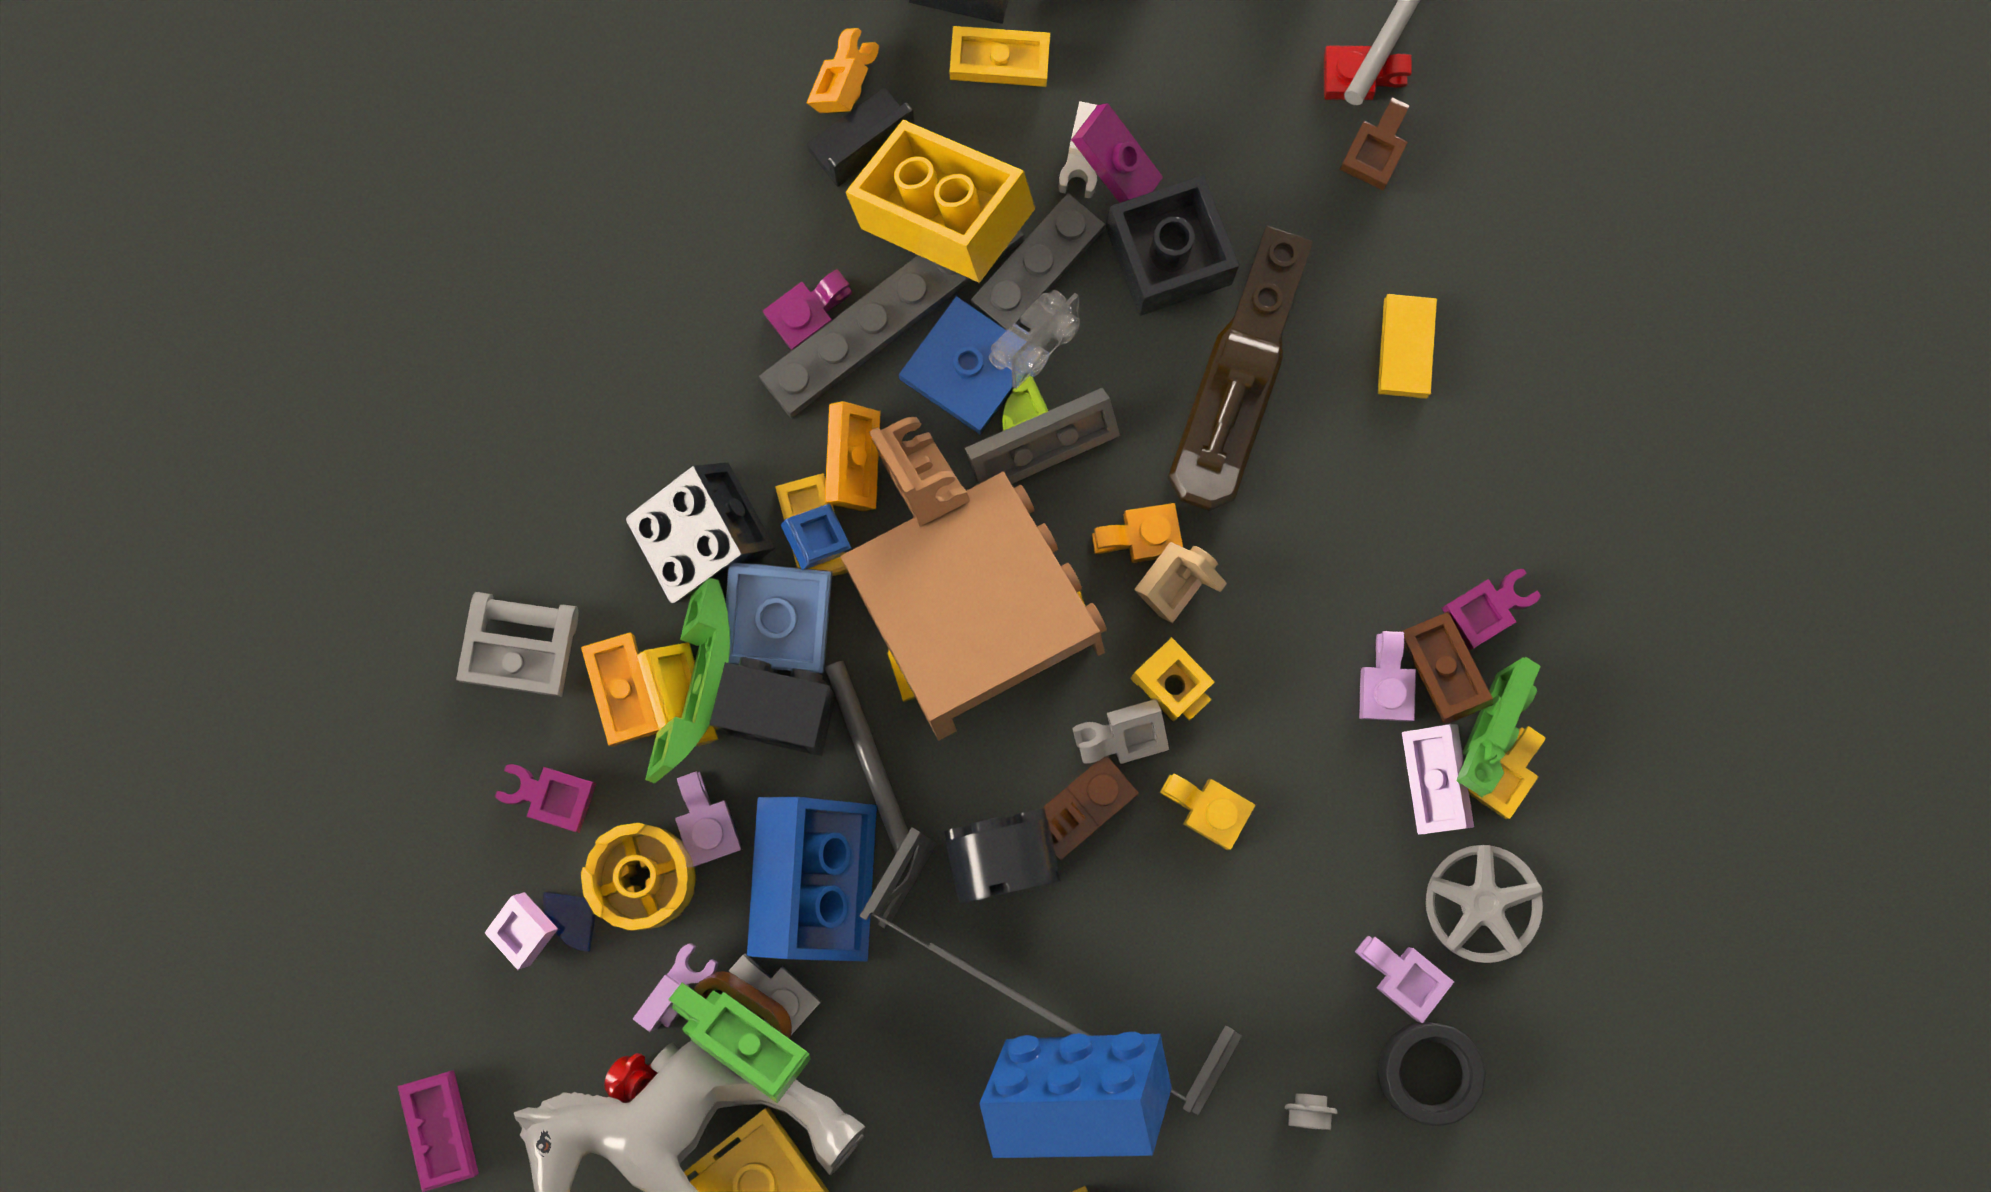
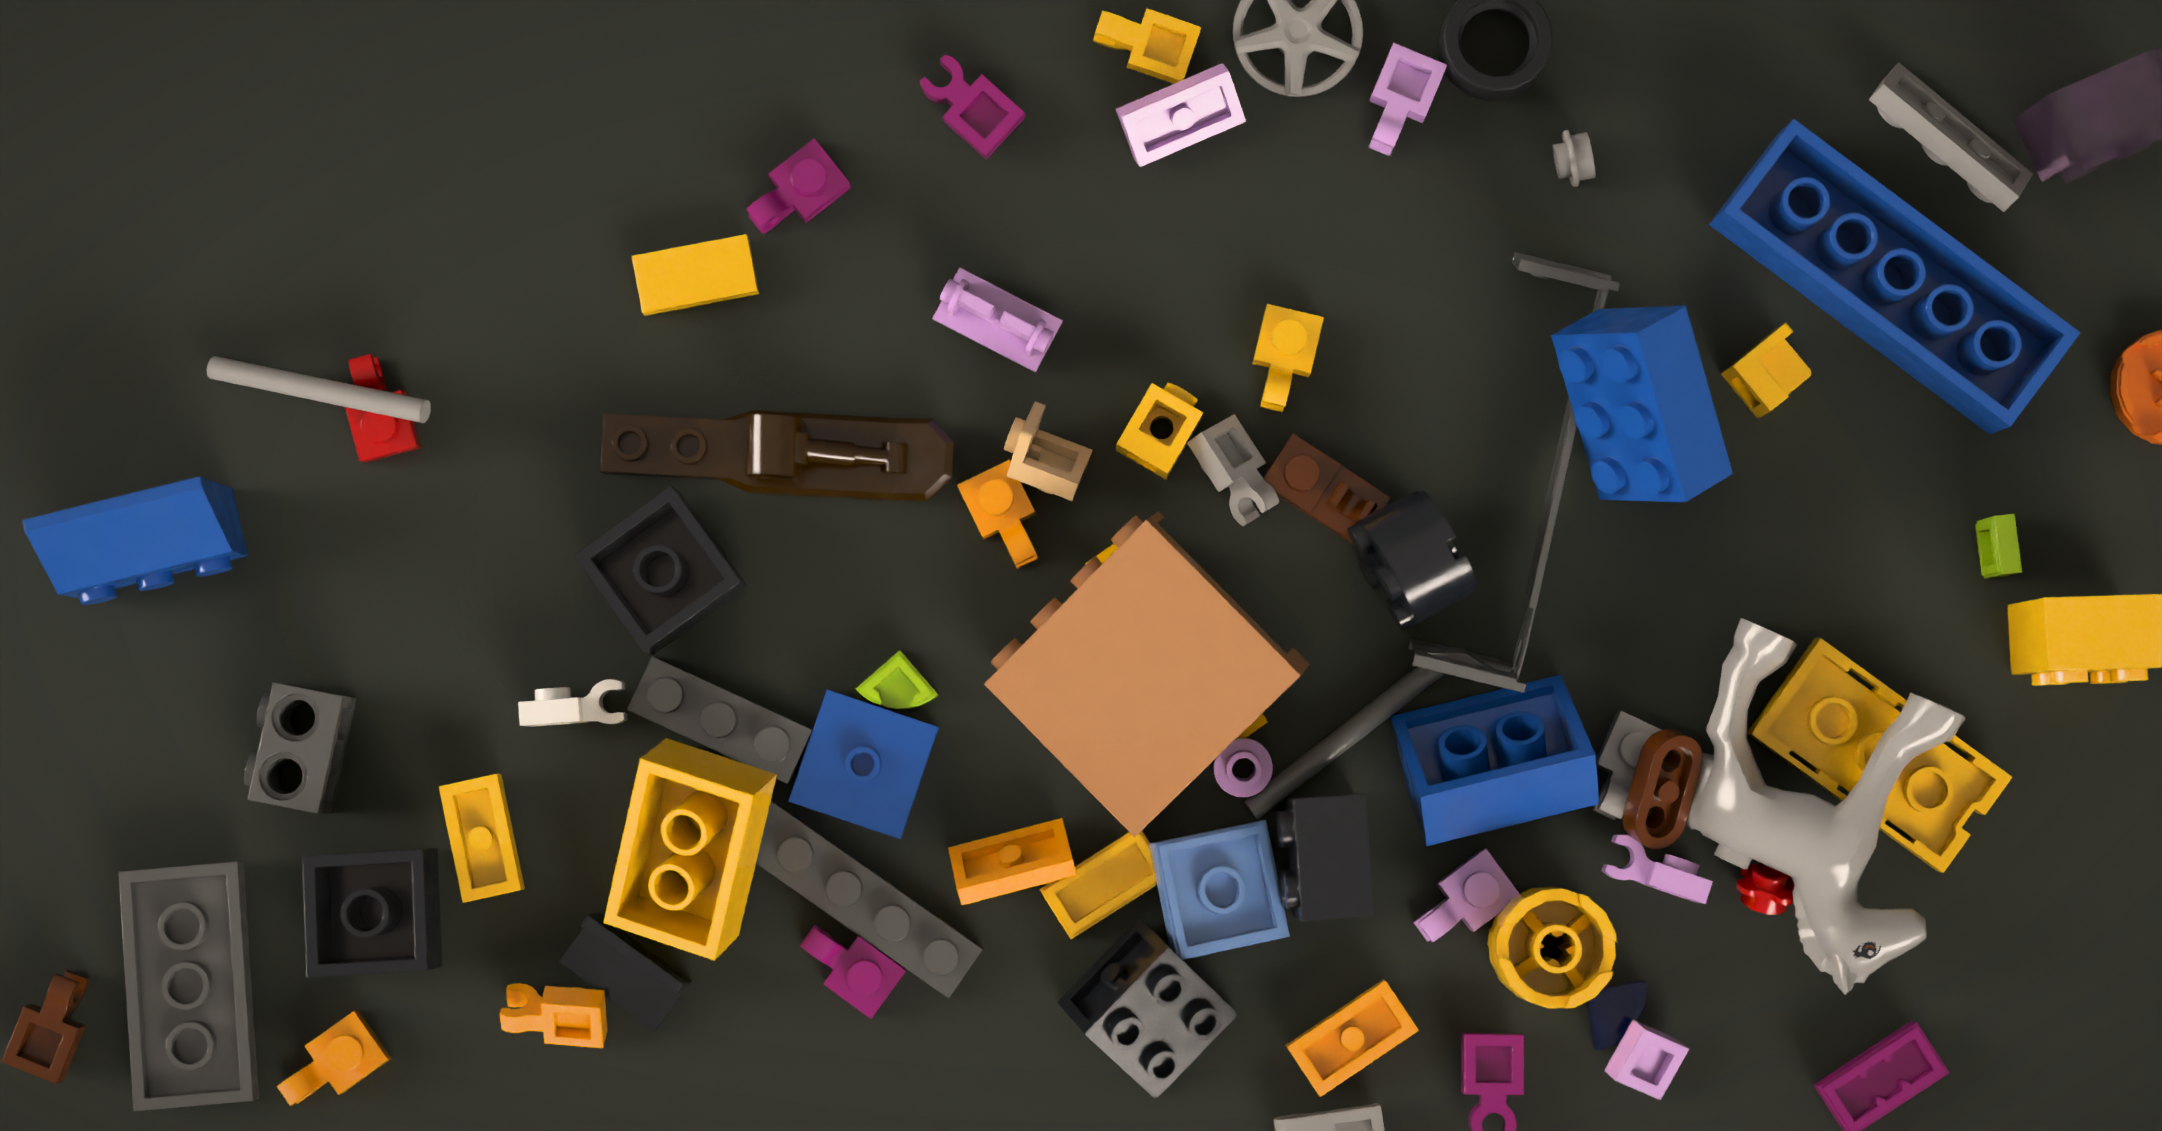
camera: 105 degrees left, 5 degrees up
(667, 680) = (1341, 972): yellow tile -> none
(708, 628) = (1252, 963): bright green slope -> none
(740, 1040) = (1695, 777): bright green hinge -> none
(815, 536) = (1119, 872): blue tile -> none
(881, 678) = (1256, 781): none -> lavender plate
(919, 471) = (1009, 778): medium nougat hinge -> none
(1045, 439) = (929, 650): dark grey plate -> none
(1051, 322) = (833, 699): clear hinge -> none
(1116, 155) = (573, 663): magenta plate -> none
(1304, 576) = (996, 319): none -> lavender hinge
(1377, 148) = (473, 370): reddish brown plate -> none
(1387, 689) = (1094, 193): lavender plate -> none
(1447, 668) = (1056, 136): reddish brown plate -> none
(1458, 454) = (804, 184): none -> magenta plate
(1495, 726) = (1107, 66): bright green hinge -> none

